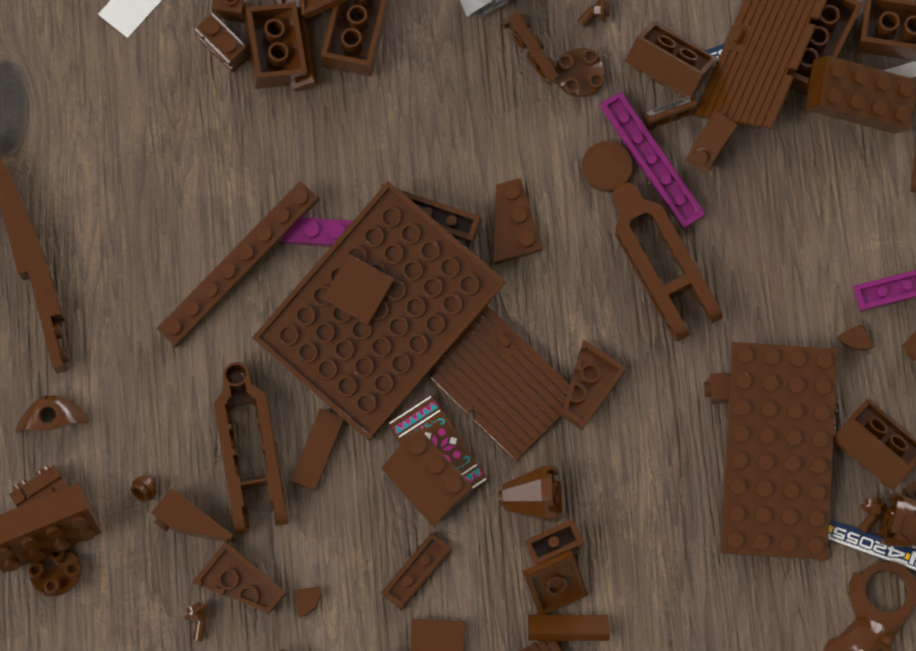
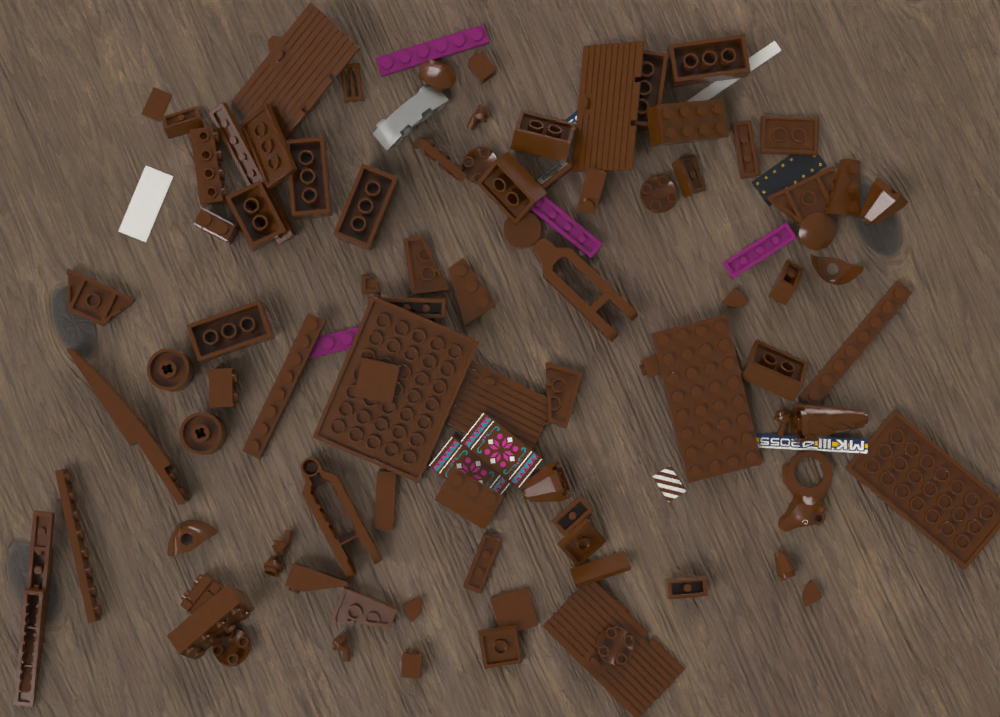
camera: 20 degrees left, 10 degrees up
(39, 86) = (94, 299): none -> reddish brown wing
(88, 196) = (159, 367): none -> reddish brown wheel
(113, 275) = (191, 433): none -> reddish brown wheel
(160, 242) = (223, 388): none -> reddish brown brick
(162, 464) = (281, 546): none -> reddish brown plate
(194, 175) = (230, 331): none -> reddish brown brick
(389, 173) = (370, 285): none -> reddish brown tile
(417, 77) = (366, 207): none -> reddish brown brick
(462, 175) = (422, 270): none -> reddish brown wing
(489, 432) = (501, 449): none -> reddish brown tile
(609, 107) = (511, 187): none -> reddish brown slope
(695, 548) = (669, 483): none -> sticker
(797, 176) = (658, 194): none -> reddish brown dish
(843, 166) = (688, 176): none -> reddish brown slope

